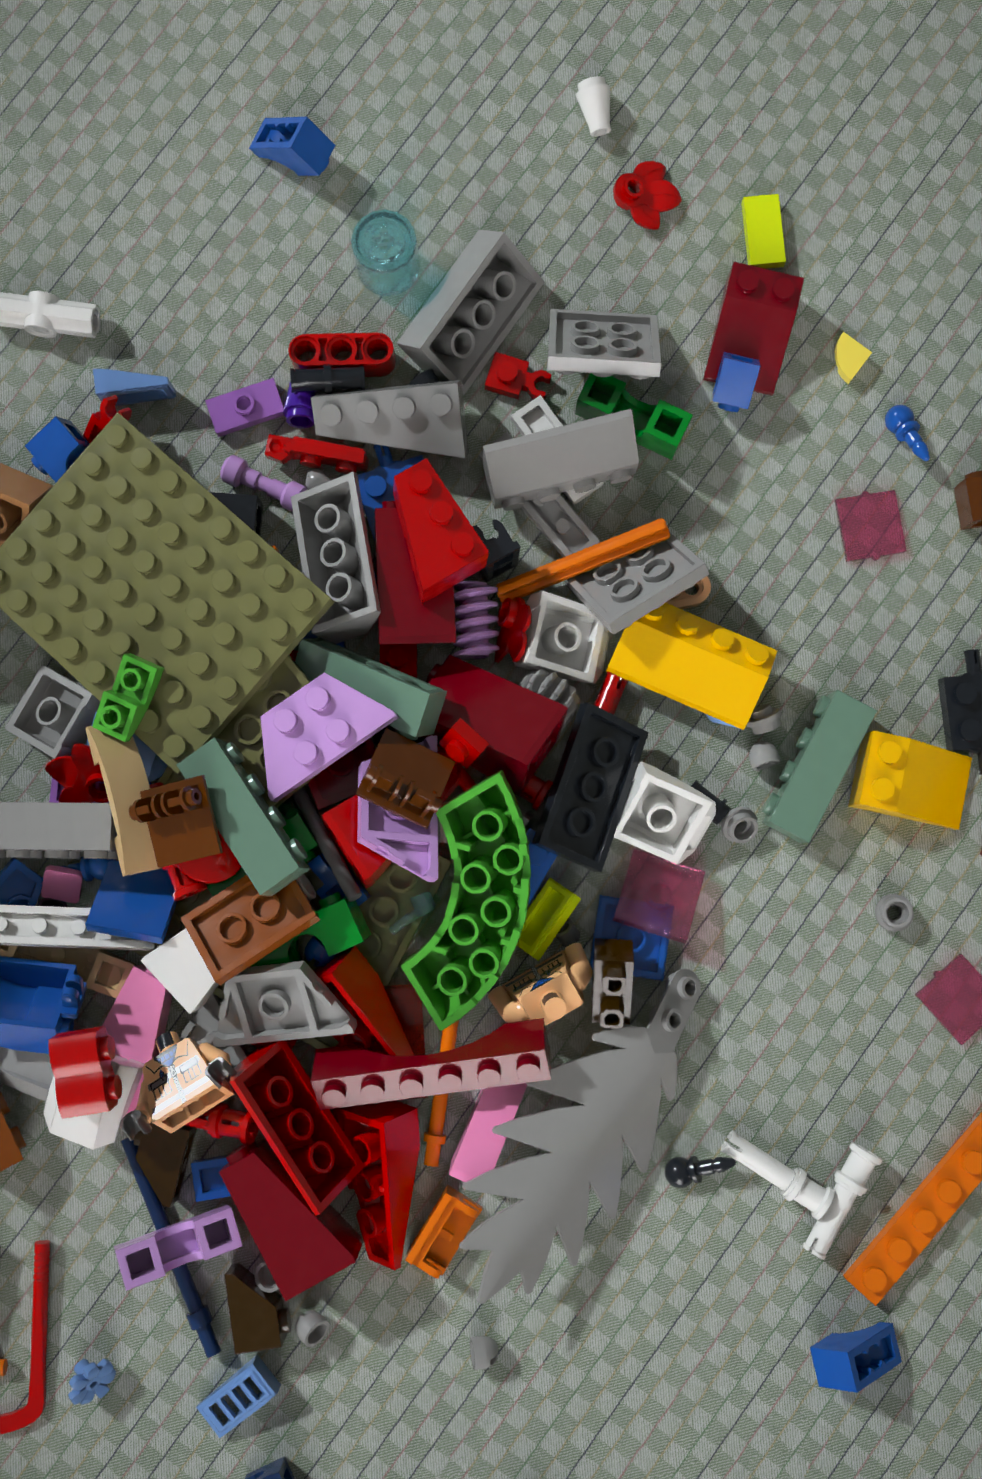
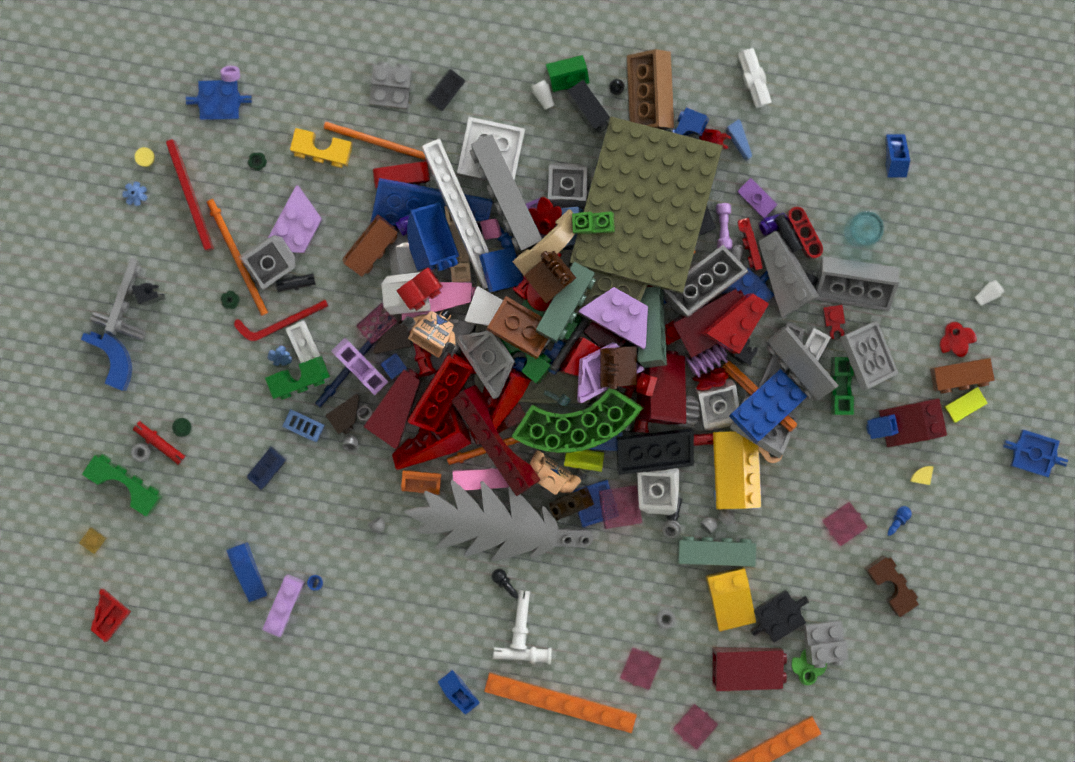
camera: 65 degrees right, 5 degrees up
(106, 1325) = (302, 341): none -> white plate
(135, 1182) = (380, 332): none -> clear pink window
(145, 1342) = (312, 372): none -> green arch
(608, 552) = (768, 406): none -> blue plate
(712, 211) = (962, 375): none -> dark orange brick
(900, 156) = (1035, 453): none -> blue plate

